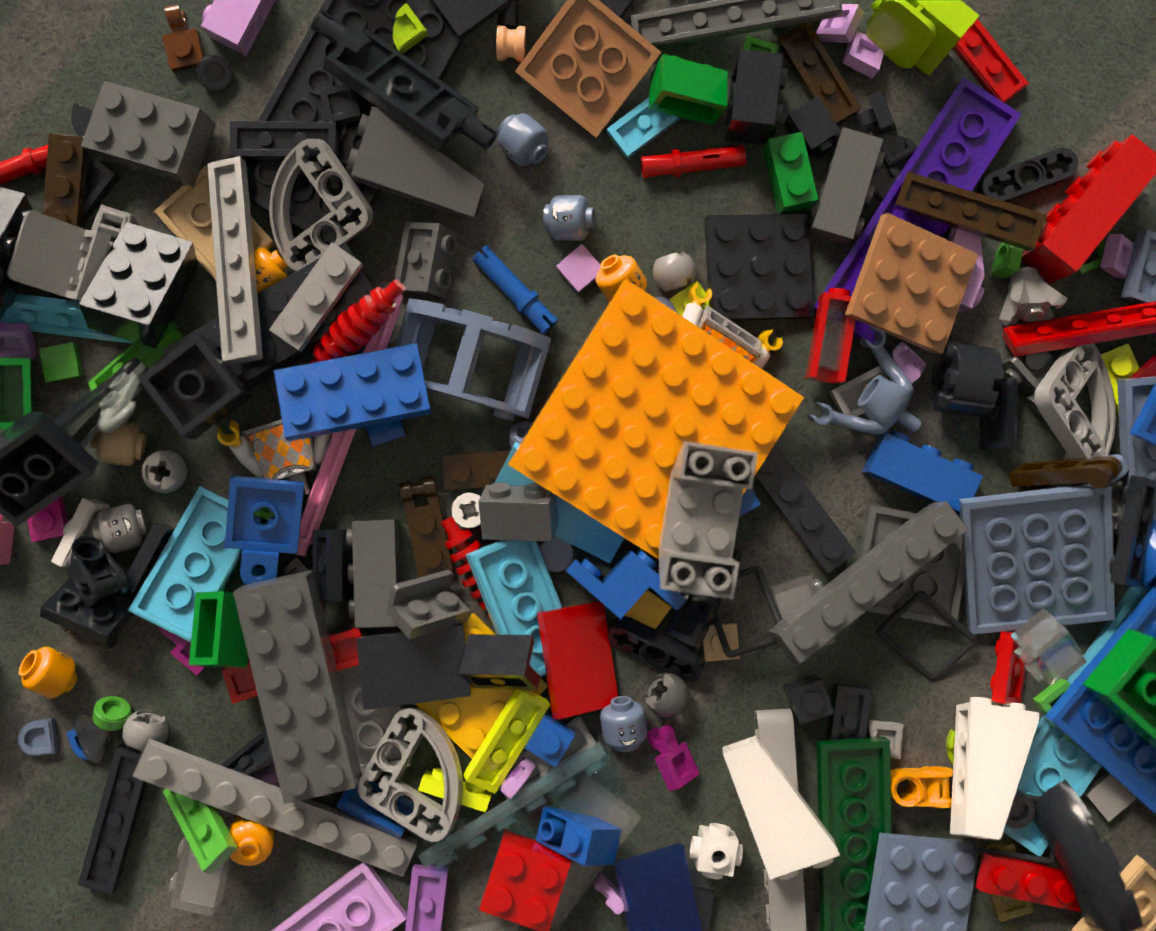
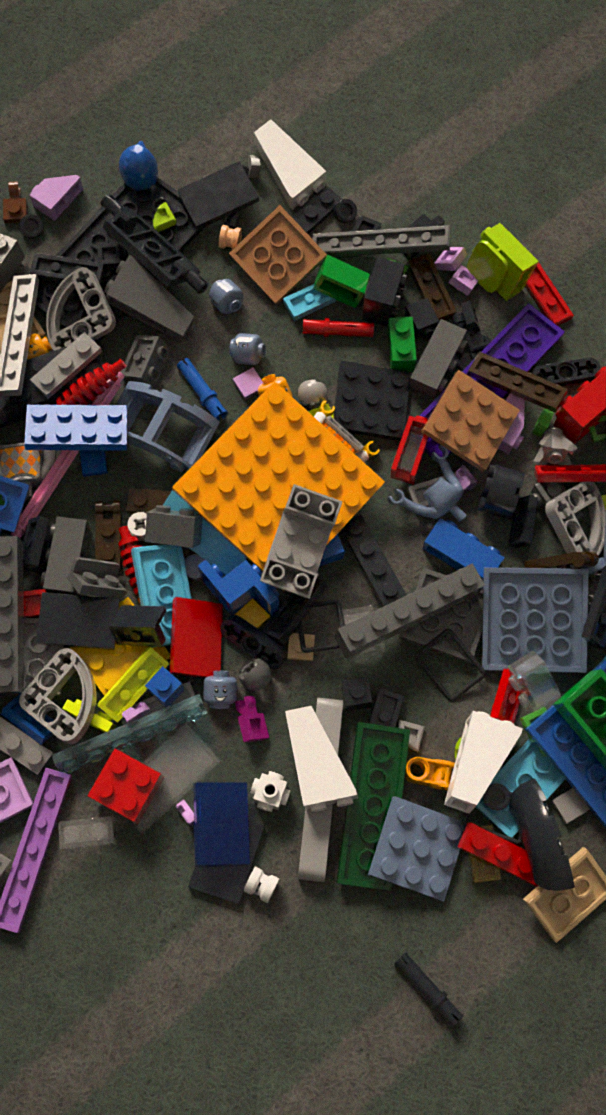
camera: 10 degrees right, 15 degrees down
(579, 836) = (172, 761): blue slope -> none

